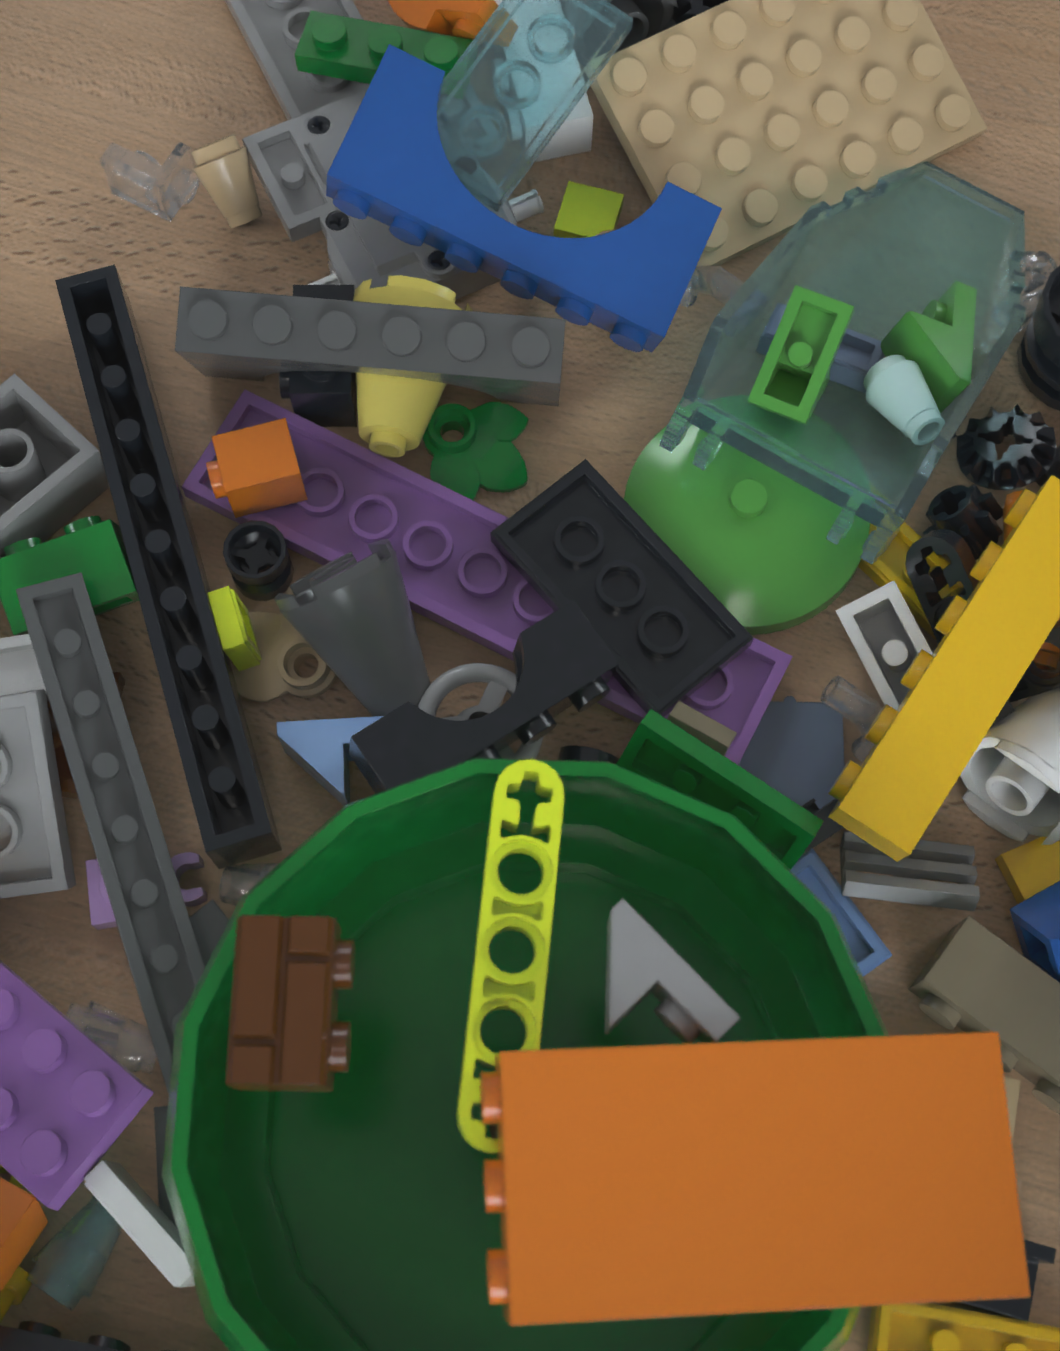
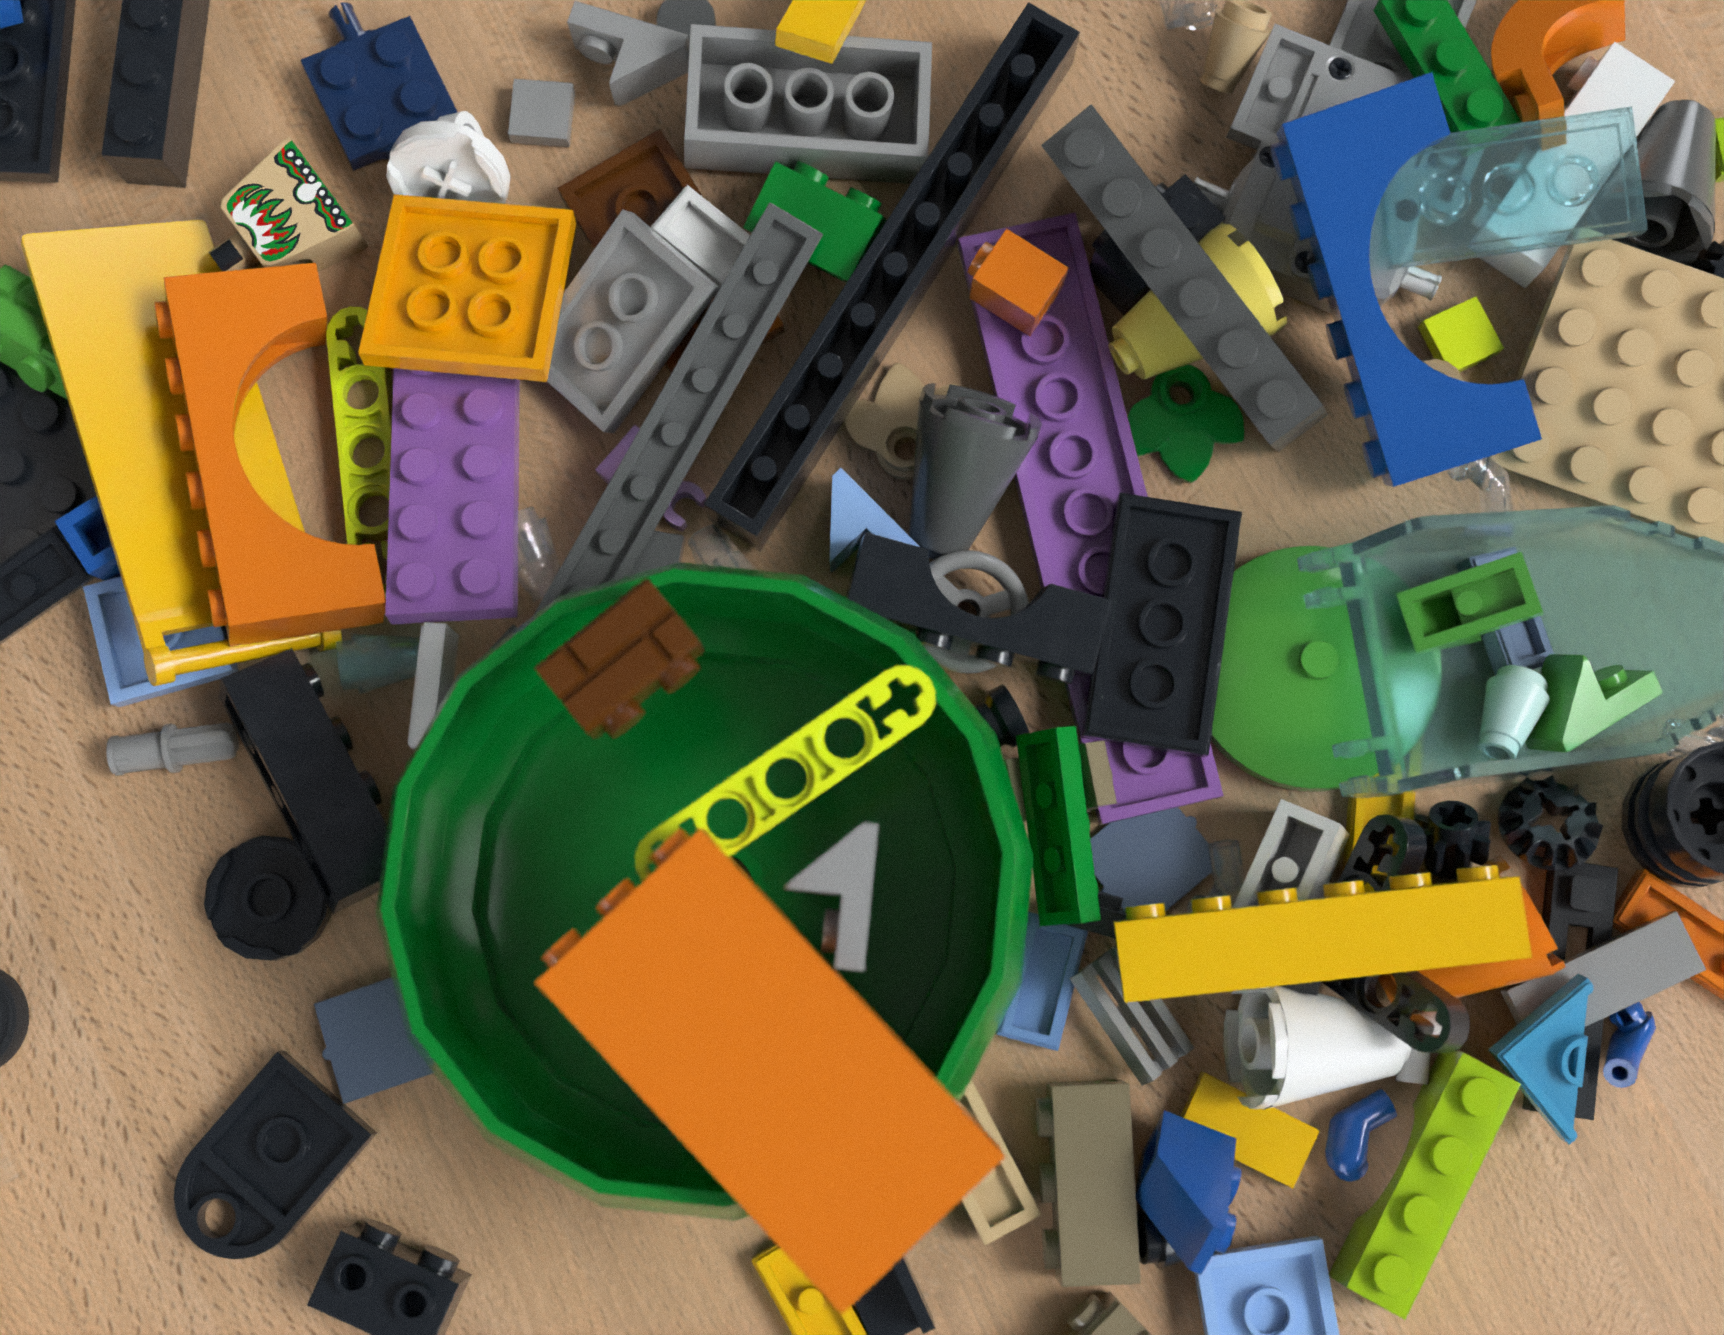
camera: 50 degrees right, 10 degrees up
(234, 628) = (884, 374): neon yellow tile -> none
(252, 548) = (950, 332): black wheel -> none

